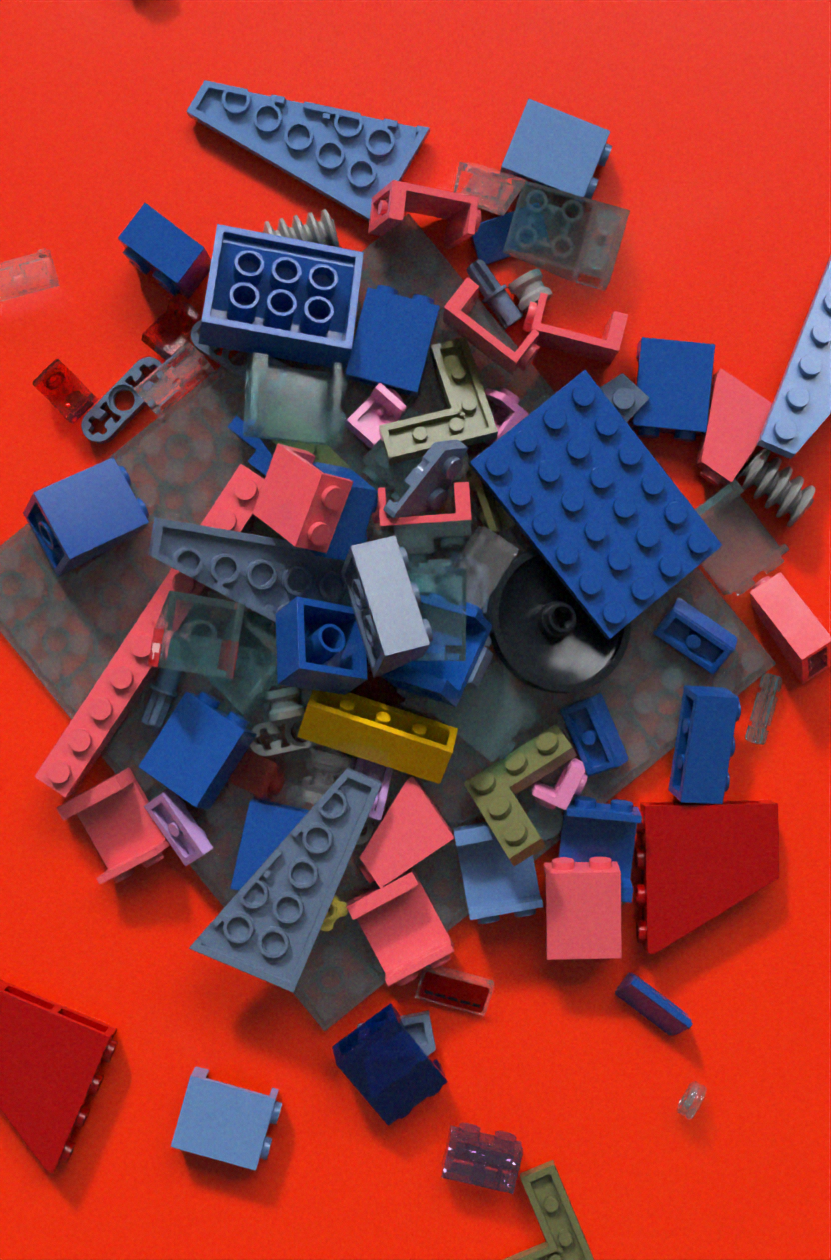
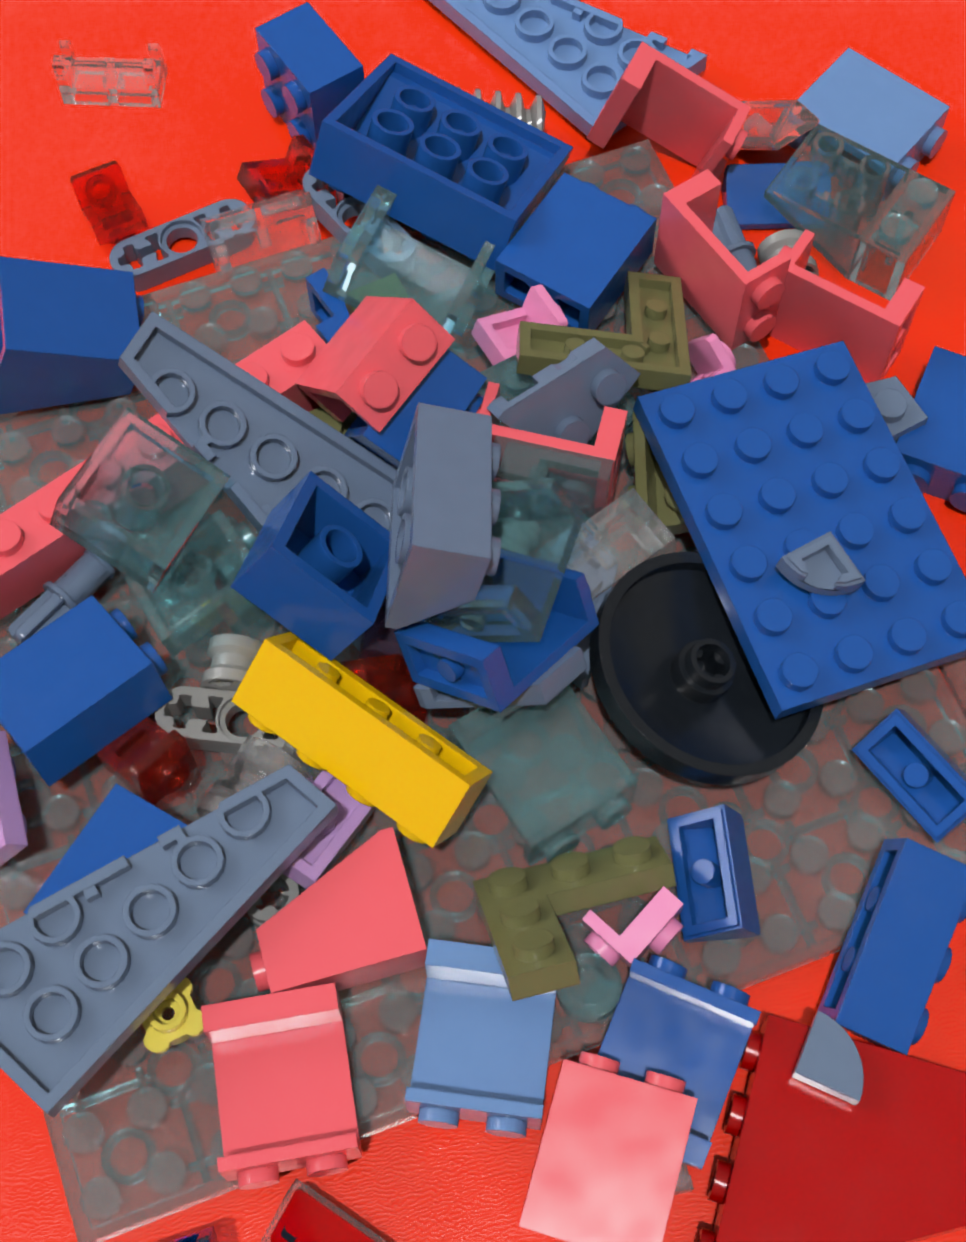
camera: 20 degrees right, 25 degrees down
(611, 544) = (821, 567): none -> sand blue tile
(683, 823) = (830, 1060): none -> sand blue tile

